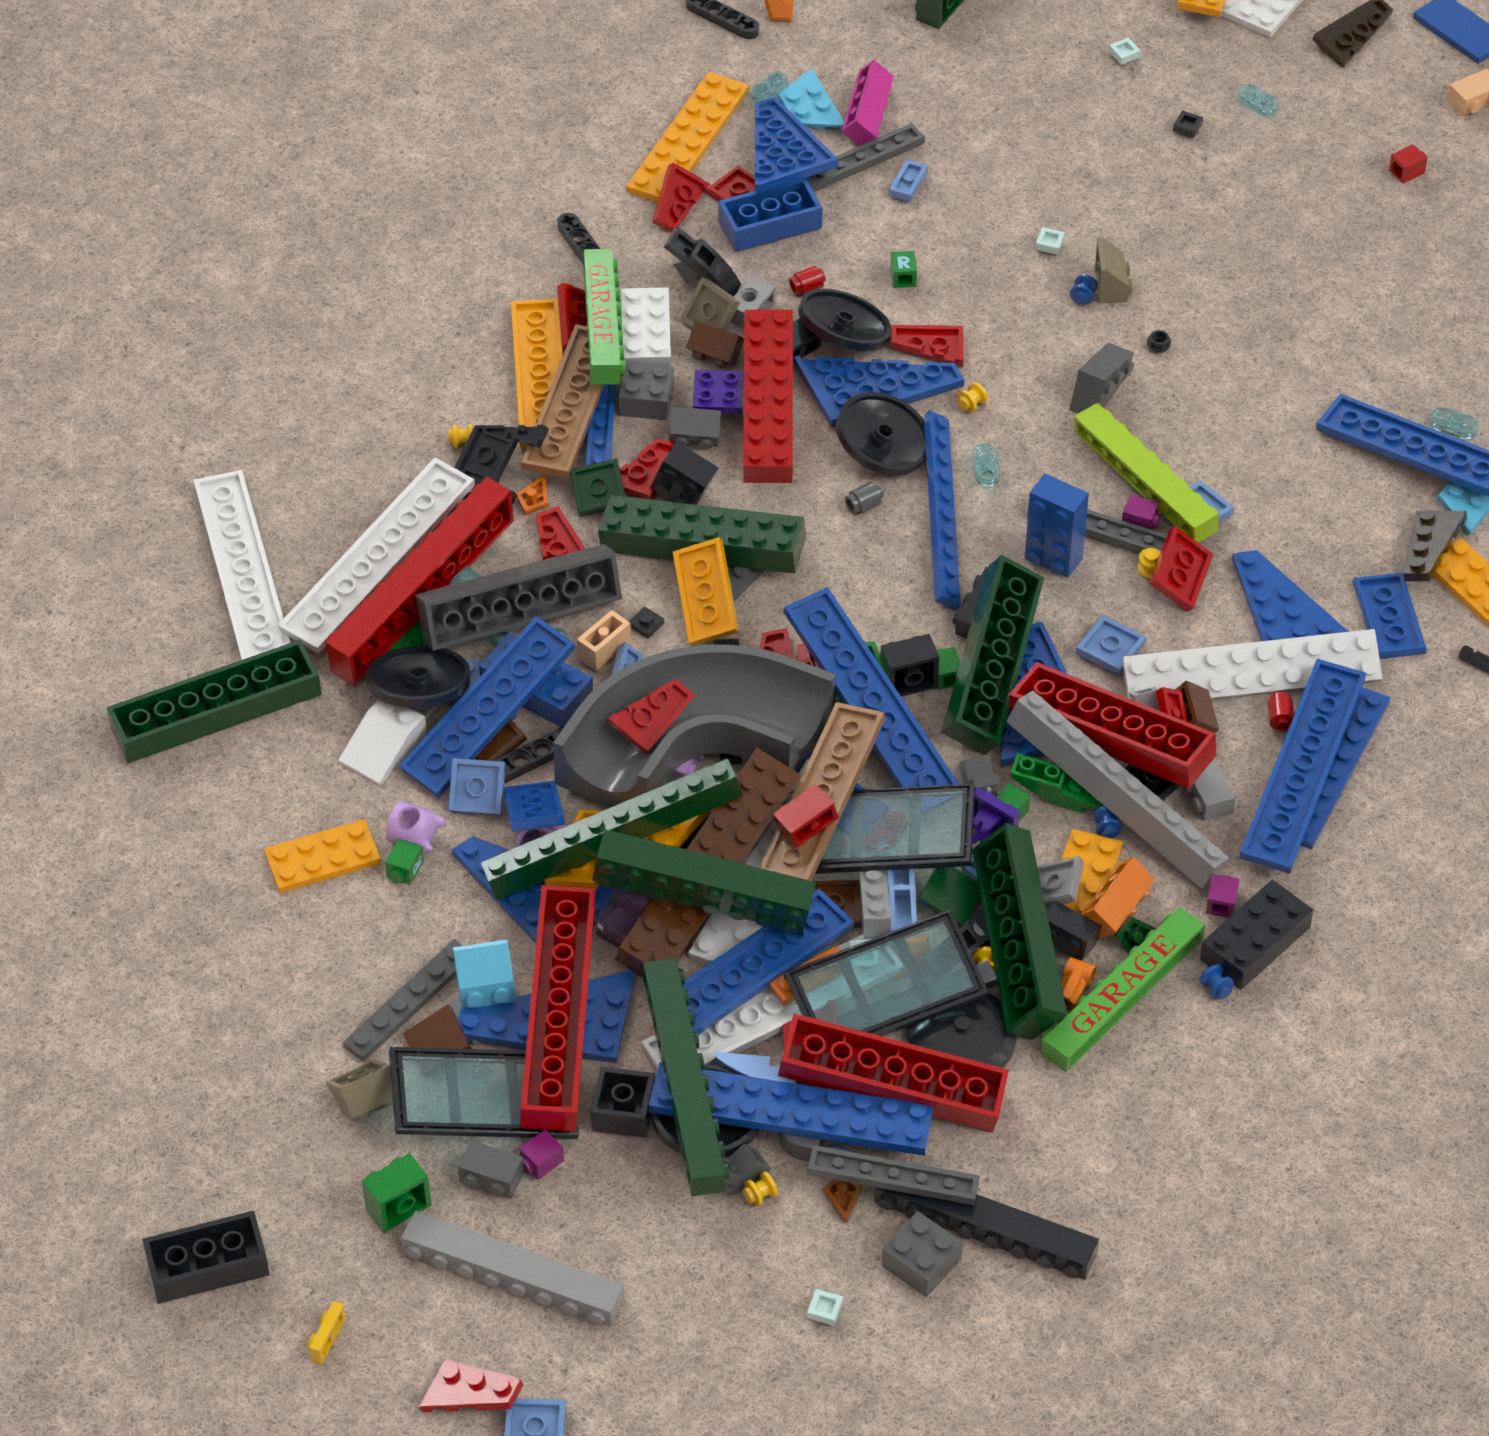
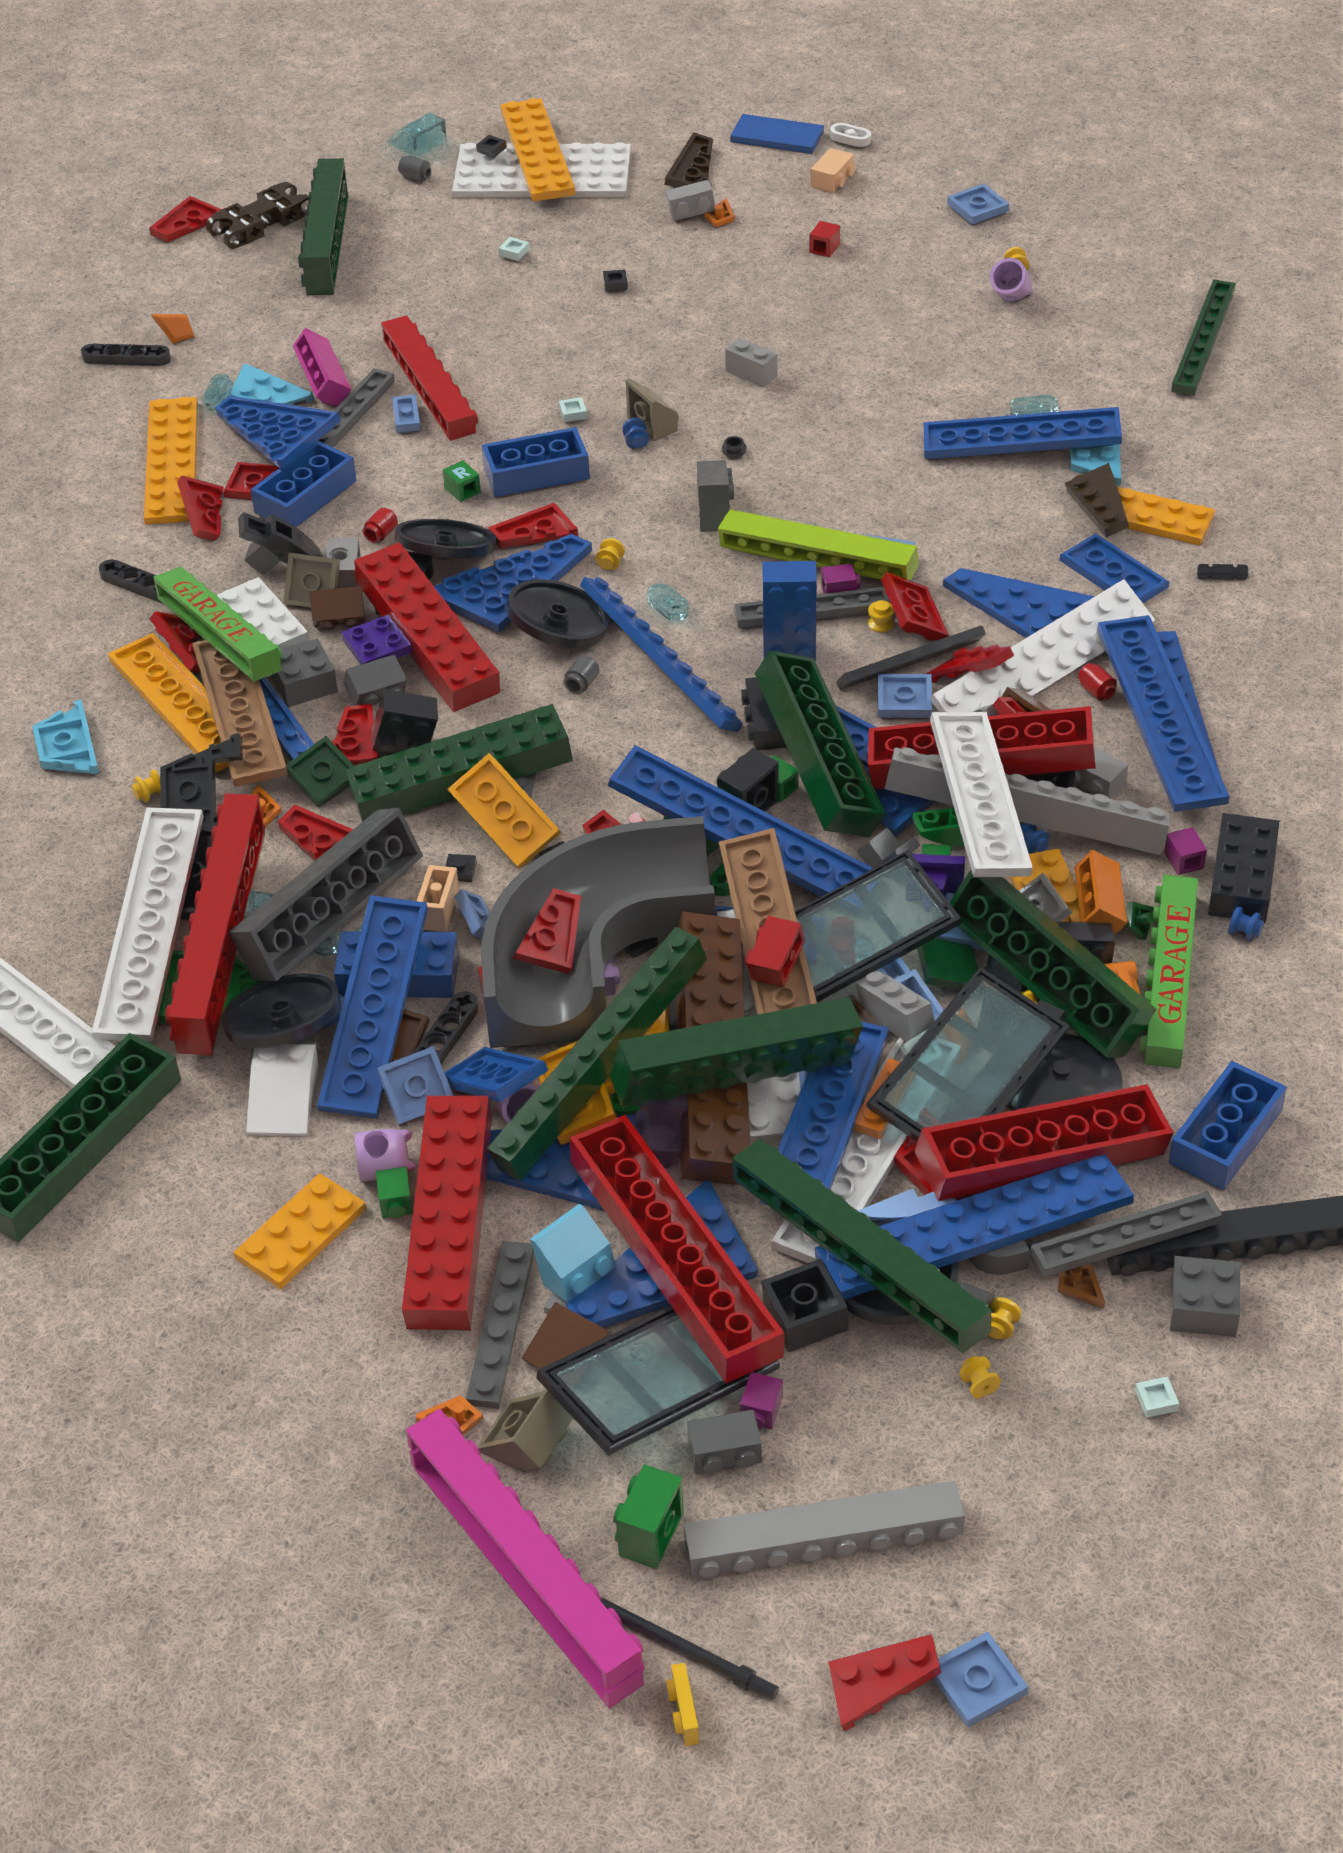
camera: 30 degrees left, 5 degrees down
(206, 1256) = (493, 1698): black brick -> none
(294, 1174) = (527, 1558): none -> dark pink piece
(325, 1050) = (458, 1408): none -> orange piece
(381, 1335) = (742, 1676): none -> black bar
(425, 897) = (447, 1214): none -> red brick
(429, 365) = (65, 742): none -> medium azure wing
(709, 1218) = (976, 1371): none -> yellow wheel
(951, 153) = (429, 378): none -> red brick
(975, 279) = (535, 461): none -> blue brick
(1052, 1134) = (1227, 1125): none -> blue brick
(1060, 765) = (980, 795): none -> white plate
(1143, 613) = (911, 657): none -> black tile
(1183, 642) = (972, 660): none -> red wing
(1237, 264) = (751, 362): none -> light grey brick
(1258, 100) = (657, 242): clear light blue plate -> none
(1317, 69) = (690, 200): none -> light grey brick
(1338, 94) = (722, 215): none -> orange piece

